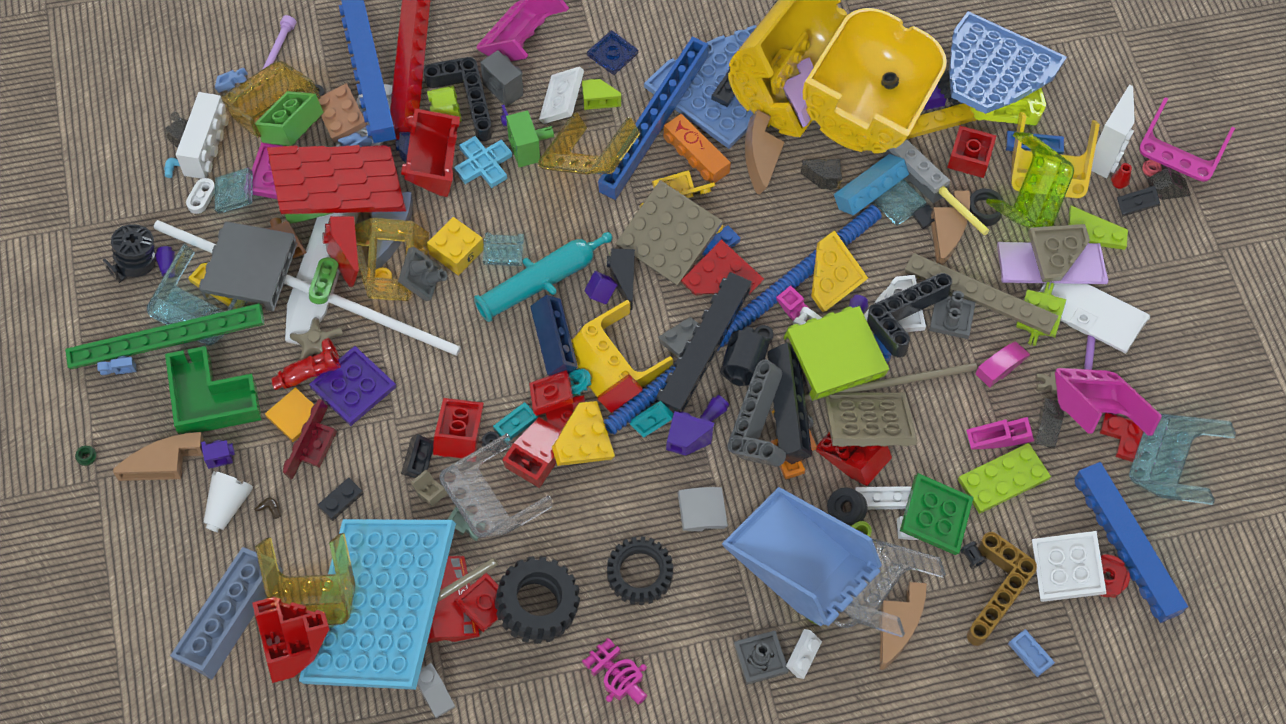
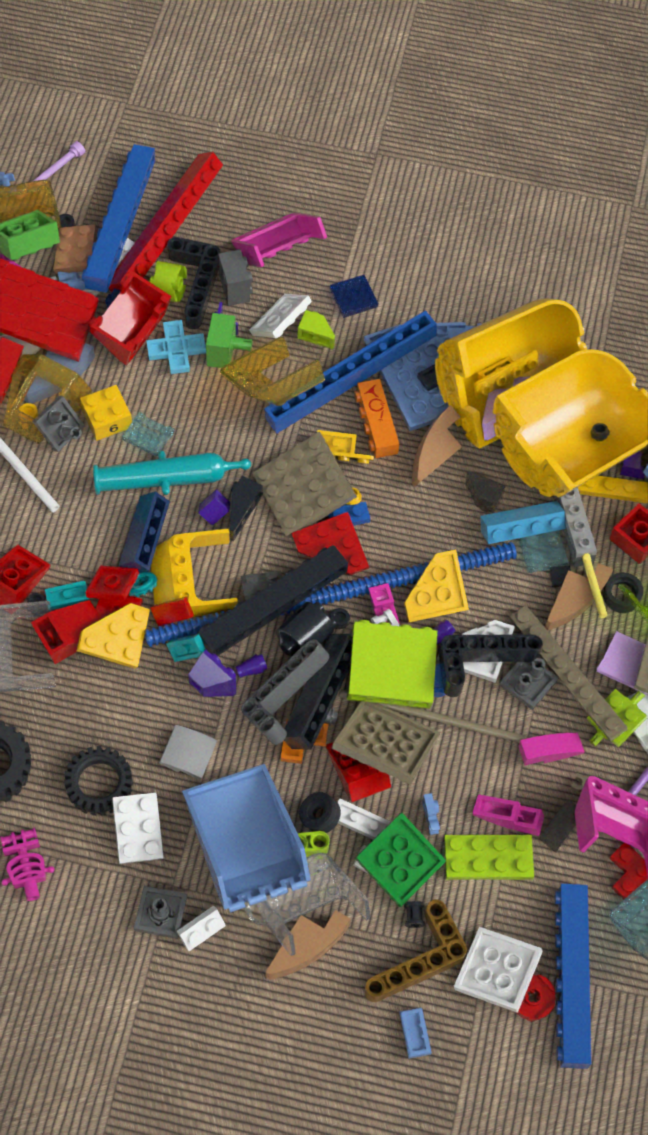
camera: 25 degrees right, 0 degrees up
(699, 594) = (137, 828): none -> white plate
(936, 461) = (431, 809): none -> medium blue plate

